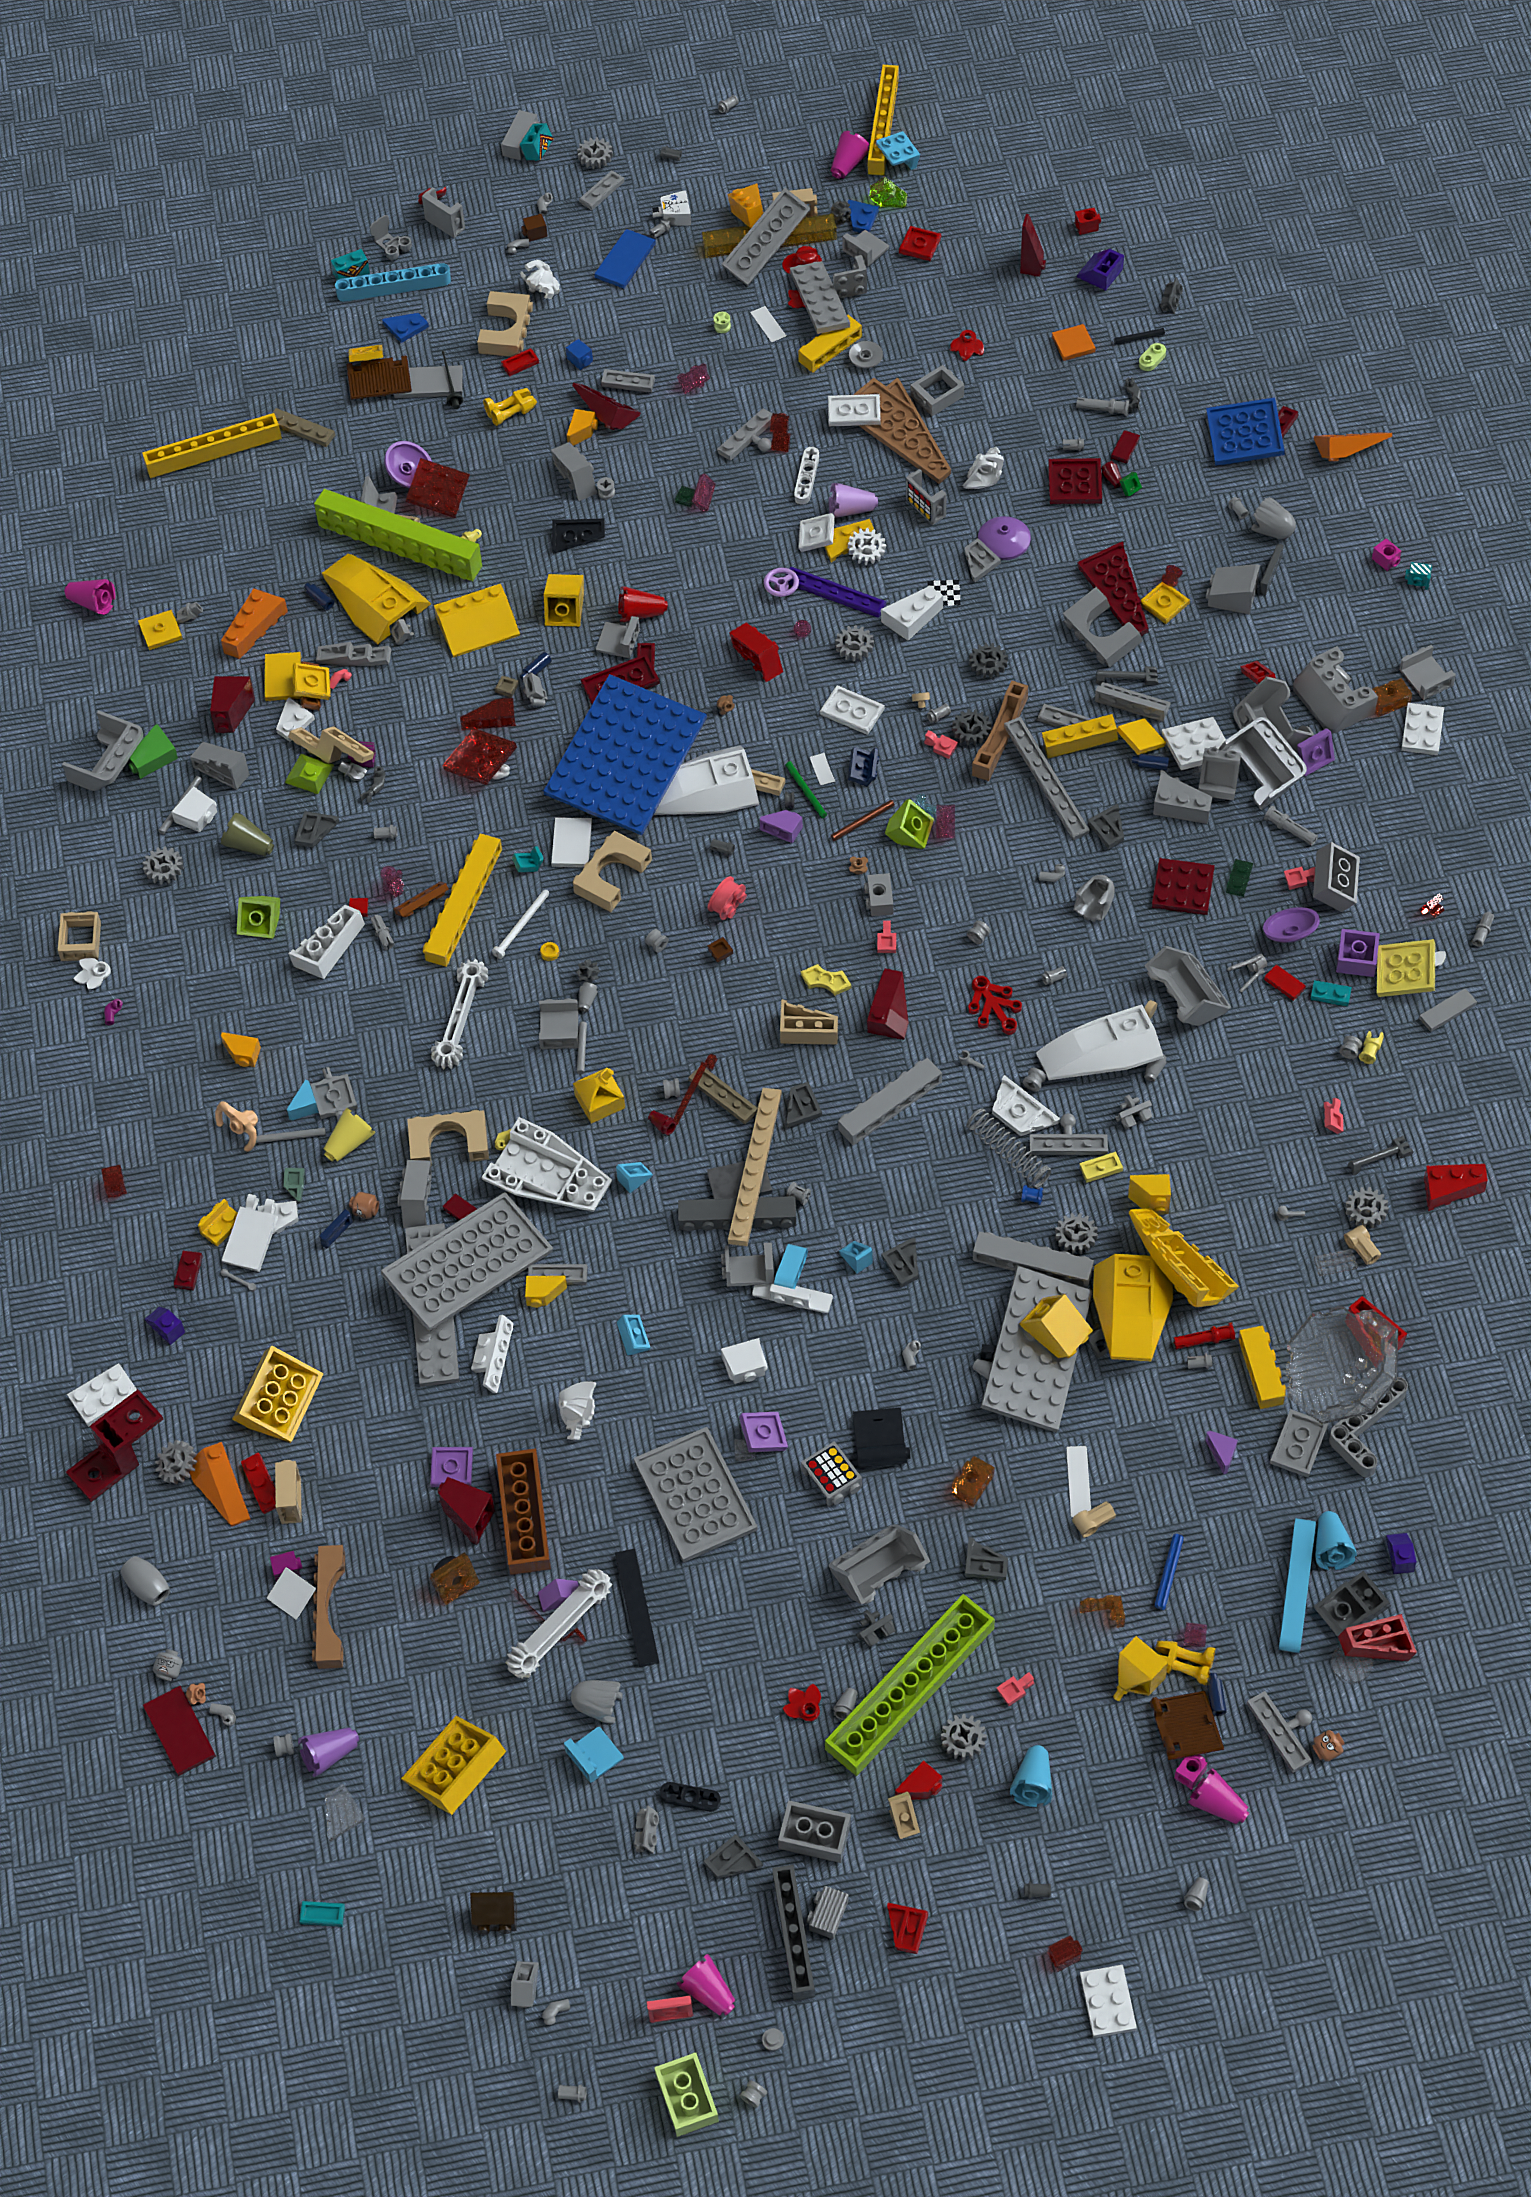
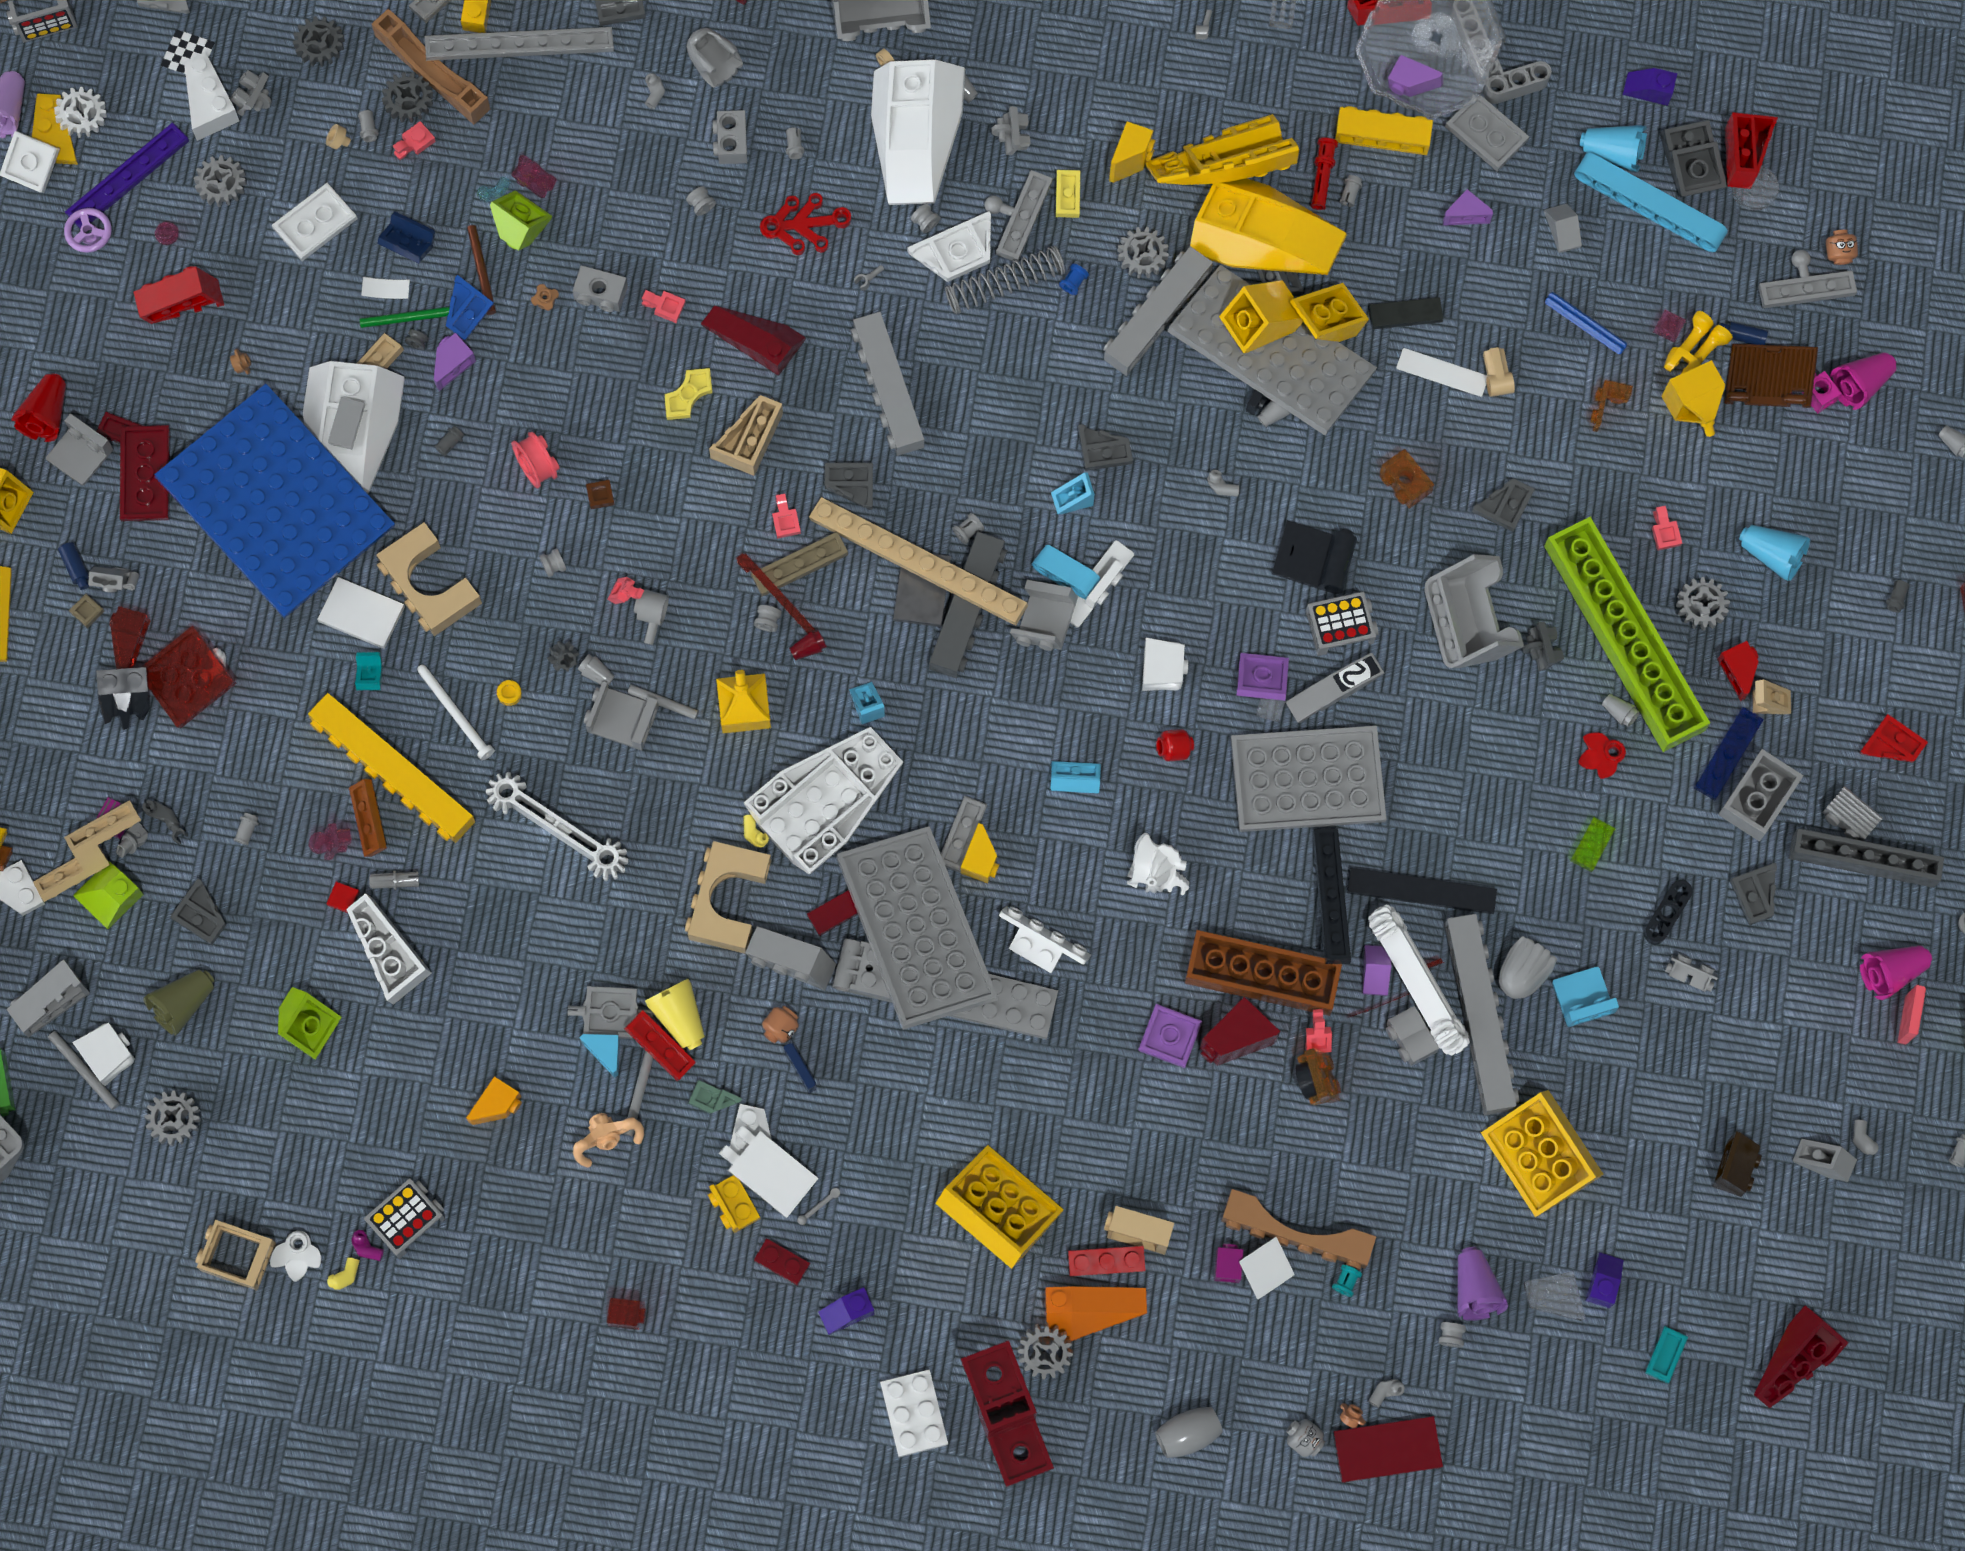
camera: 75 degrees left, 15 degrees up
(86, 1007) = (344, 1277): none -> light yellow arm
(139, 1023) = (404, 1216): none -> panel
(301, 1655) = (1347, 1280): none -> teal bush
(319, 1133) = (660, 1045): none -> red plate
(357, 2015) = (1802, 1349): none -> dark red wedge
(366, 1845) = (1605, 1280): none -> dark purple slope
(451, 725) = (123, 694): none -> black plate
(487, 1566) = (1319, 1036): none -> coral plate
(516, 1630) = (1412, 1036): none -> light grey brick
(550, 1680) = (1480, 1014): none -> light grey brick
(602, 1538) = (1331, 896): none -> black tile
(647, 1014) = (651, 609): none -> light grey piece
(653, 990) = (624, 590): none -> coral plate
(683, 1390) = (1174, 745): none -> red head
(700, 774) = (346, 423): none -> light grey tile
(724, 1719) = (1592, 844): none -> clear neon green plate
(753, 1074) = (785, 520): none -> coral plate
(777, 1487) = (1335, 687): none -> light grey slope
(825, 820) = (466, 308): none -> blue wing
(845, 1801) = (1728, 753): none -> clear blue tile
(935, 635) = (246, 100): none -> light grey hips
(1040, 937) = (730, 137): none -> light grey brick
(1079, 1372) = (1331, 313): none -> yellow slope
(1115, 1437) = (1406, 313): none -> pearl dark grey tile
(1244, 1527) = (1564, 227): none -> light grey slope
(1314, 1369) = (1413, 77): none -> medium lavender slope

